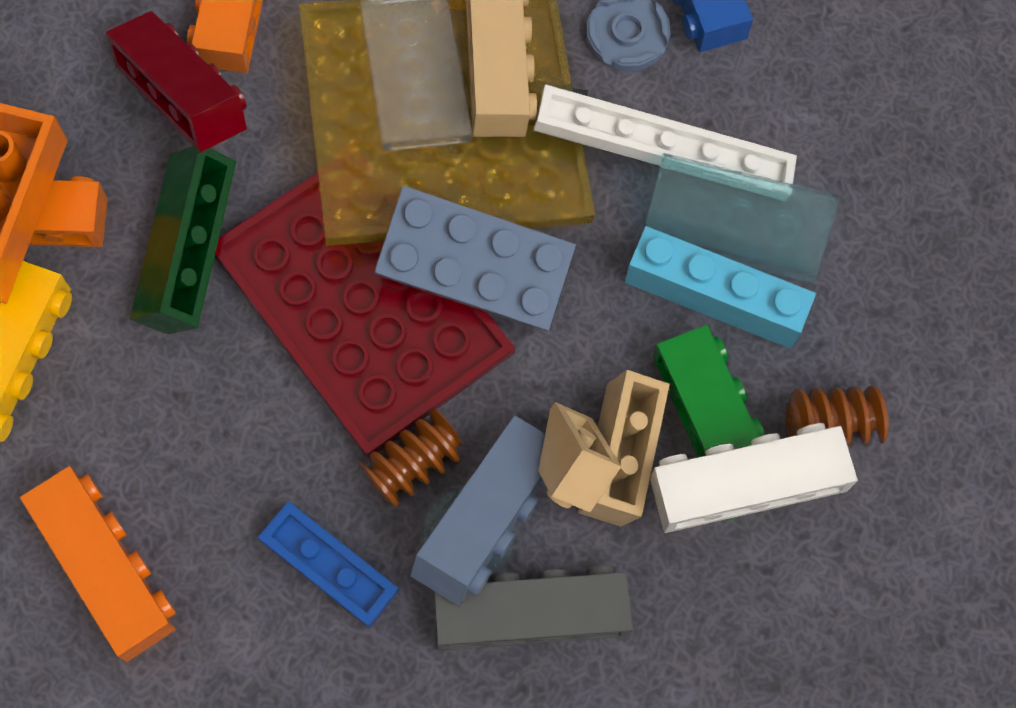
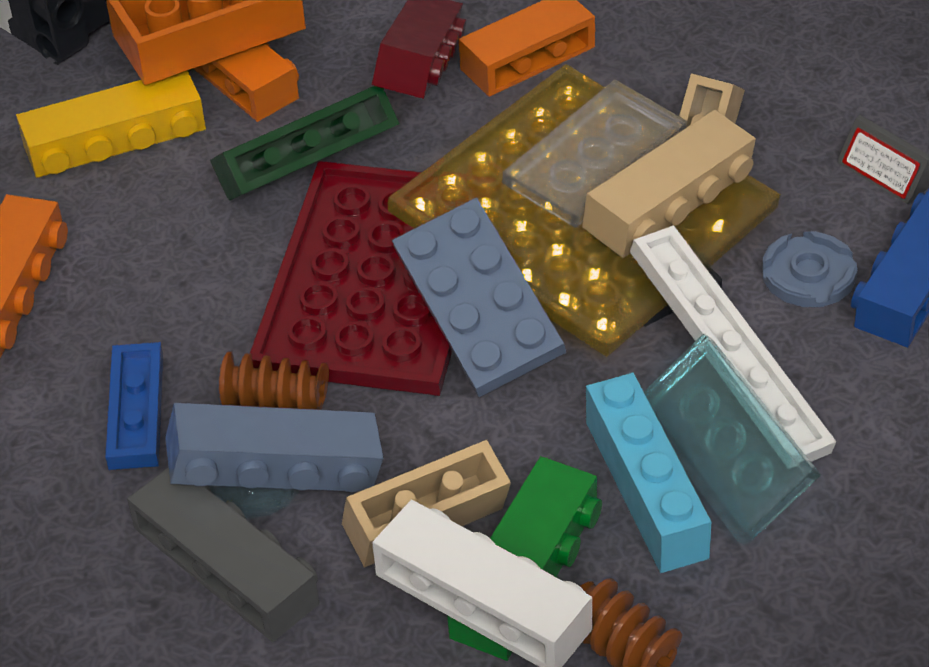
camera: 55 degrees right, 25 degrees down
(575, 459) = (369, 458): tan slope -> none

